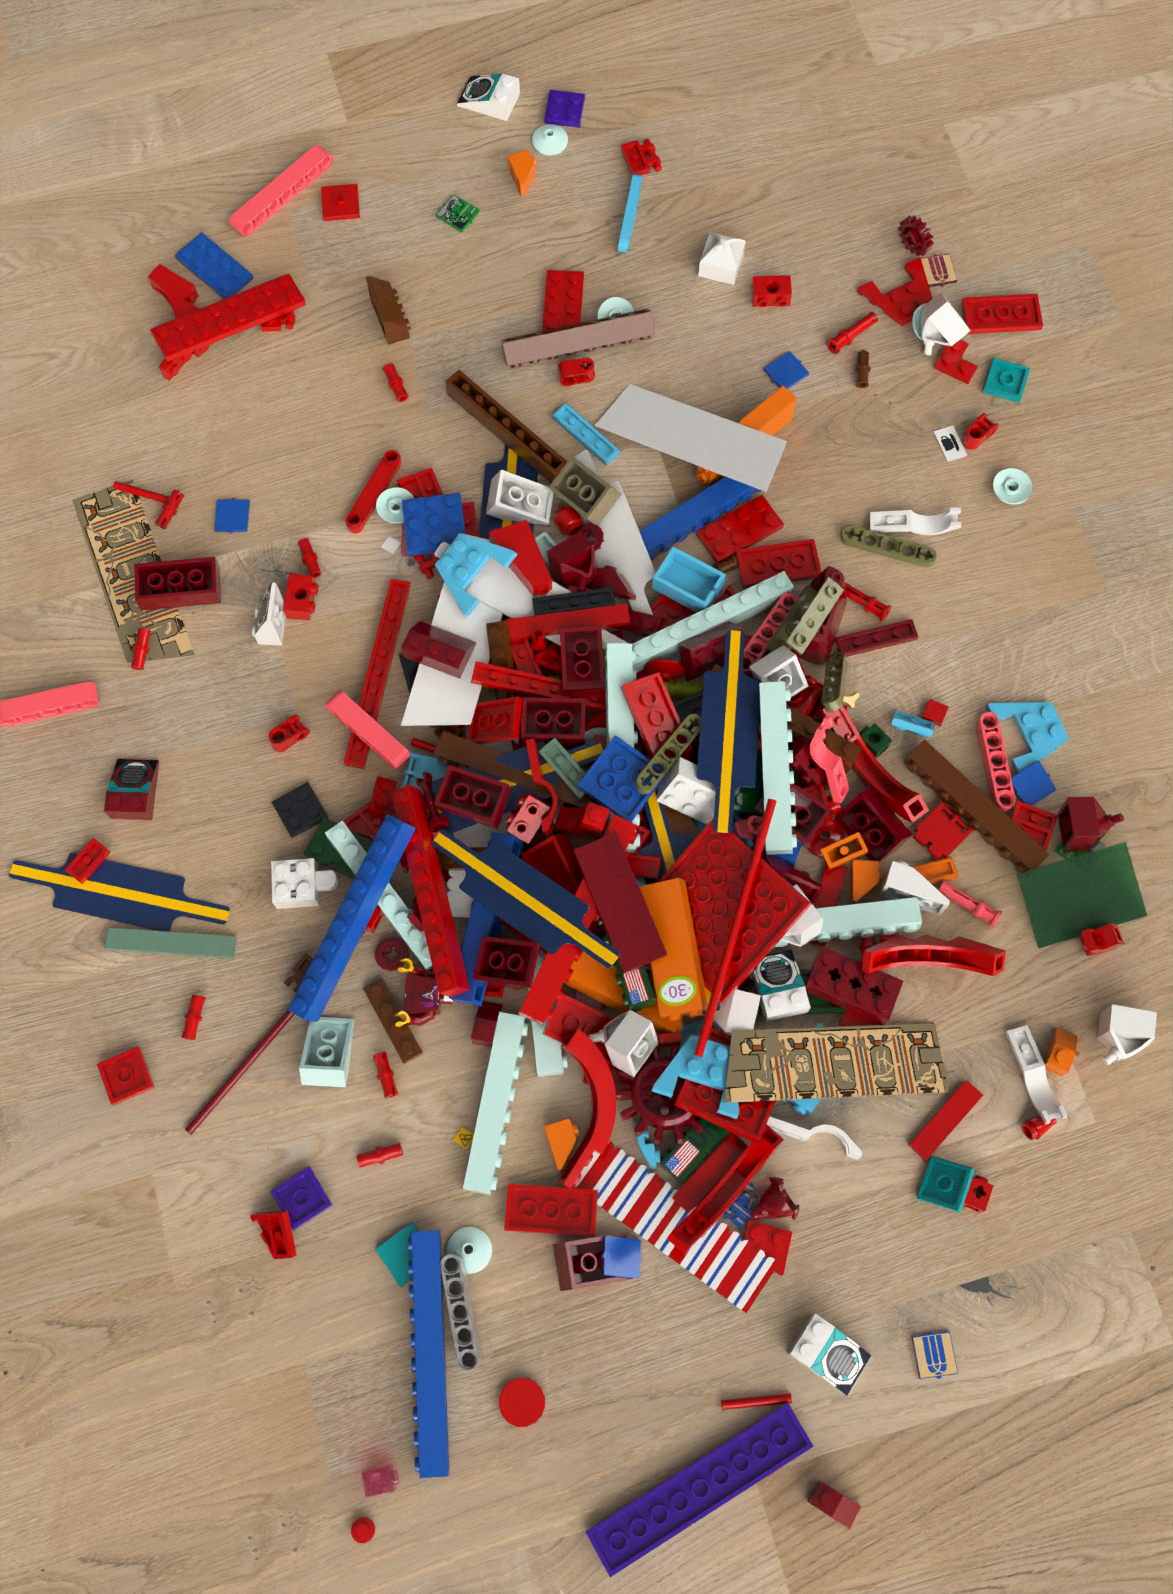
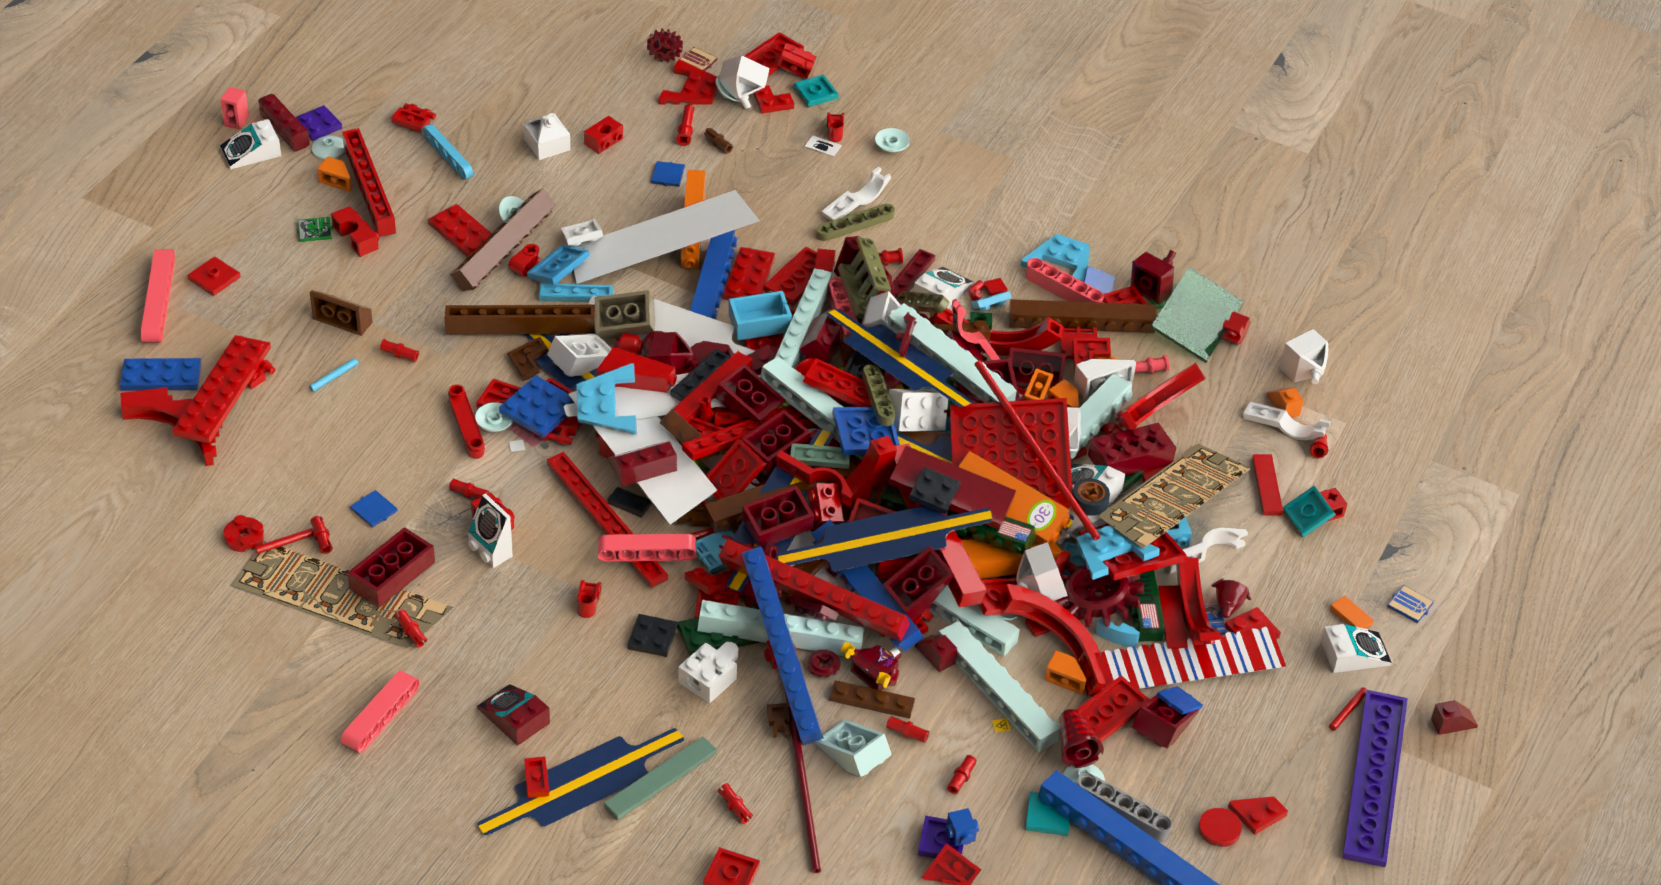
camera: 50 degrees left, 25 degrees down
(122, 452) = (243, 525): none -> red plate
(313, 1208) = (961, 827): none -> blue brick
(329, 366) = (334, 374): none -> medium azure bar
(478, 252) = (362, 237): none -> red arch
(479, 464) = (524, 357): none -> reddish brown tile
(490, 1215) = (1078, 741): none -> dark red cone
(508, 47) = (234, 108): none -> coral brick
(534, 89) = (284, 122): none -> dark red brick
(534, 199) = (369, 182): none -> red brick
(568, 1421) = (1258, 812): none -> red wing
(595, 396) = (558, 264): none -> dark azure plate
(596, 895) = (934, 490): none -> black plate
(646, 378) = (582, 232): none -> white plate
(739, 1017) = (1091, 496): none -> wheel
(750, 717) = (906, 337): none -> dark red piece
(807, 570) = (825, 259): none -> red tile
(867, 1316) = (1351, 613): none -> orange tile
(886, 674) = (943, 282): none -> white slope
(911, 700) = (974, 290): none -> red arm
(932, 846) = (1088, 347): none -> red plate
(1016, 336) = (796, 60): none -> red brick

